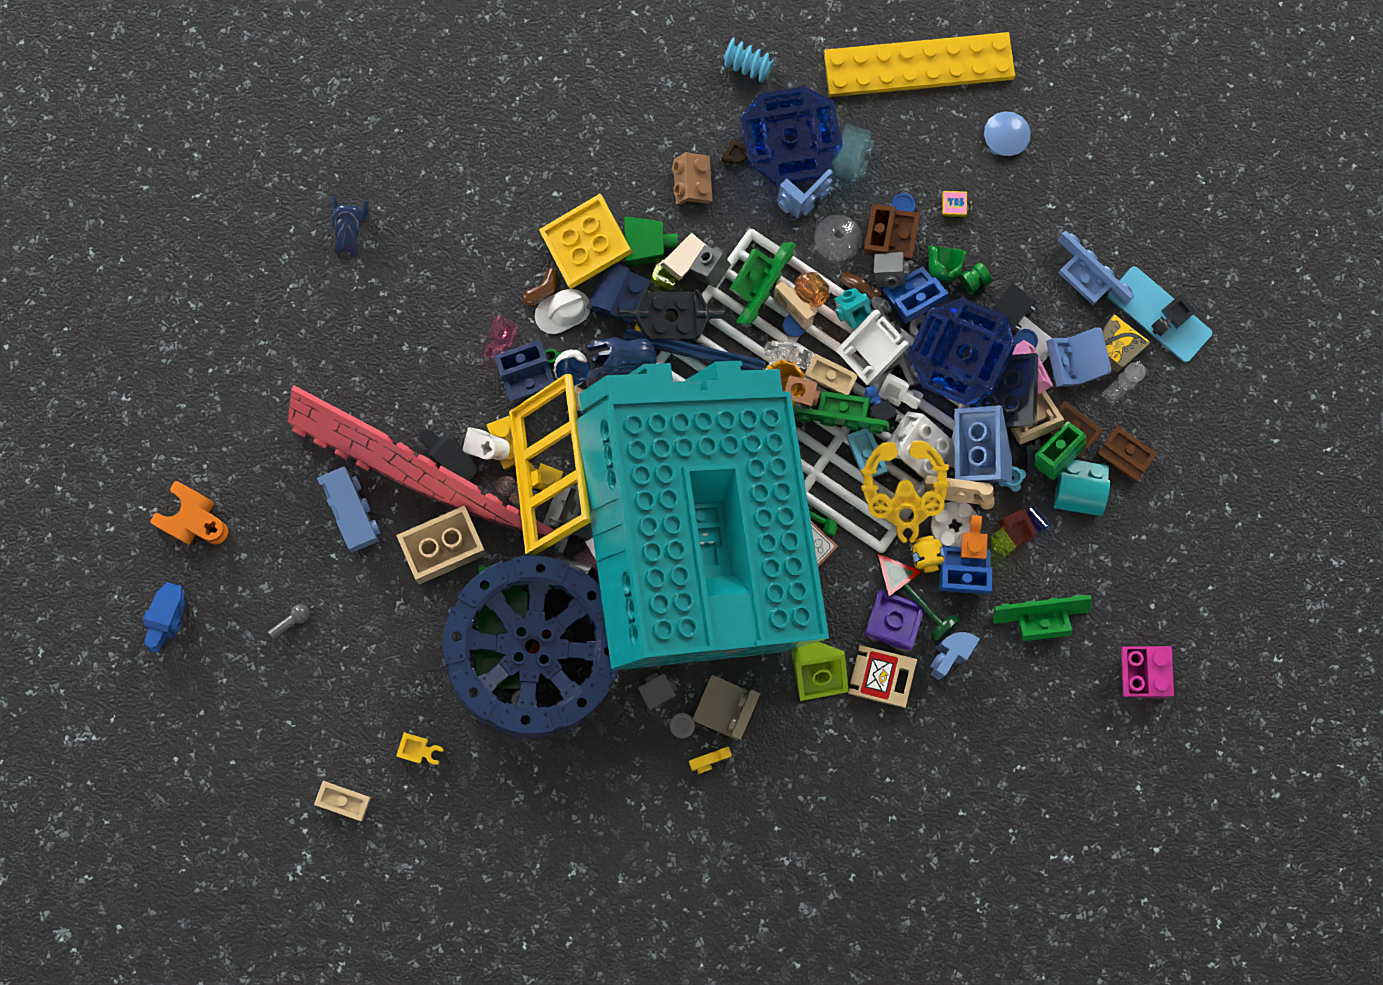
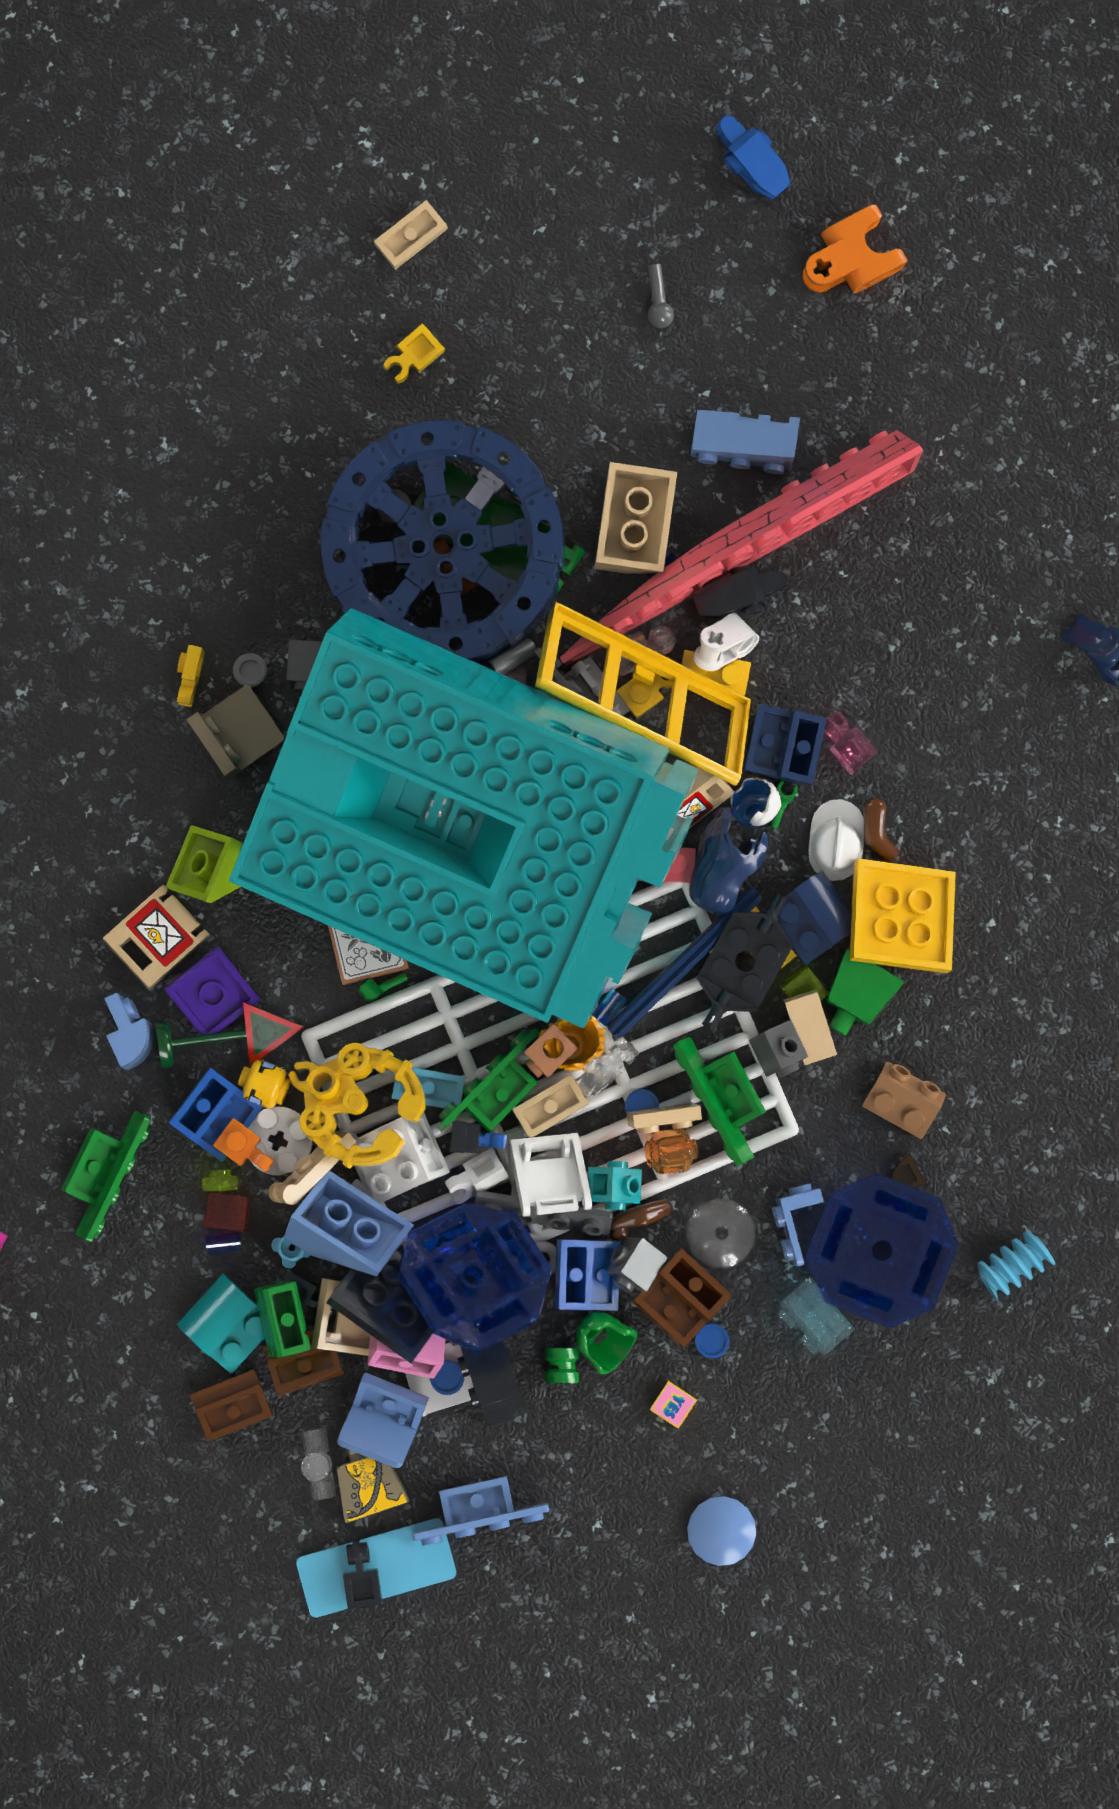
camera: 125 degrees right, 5 degrees up
(919, 64) = (880, 1480): yellow plate -> none

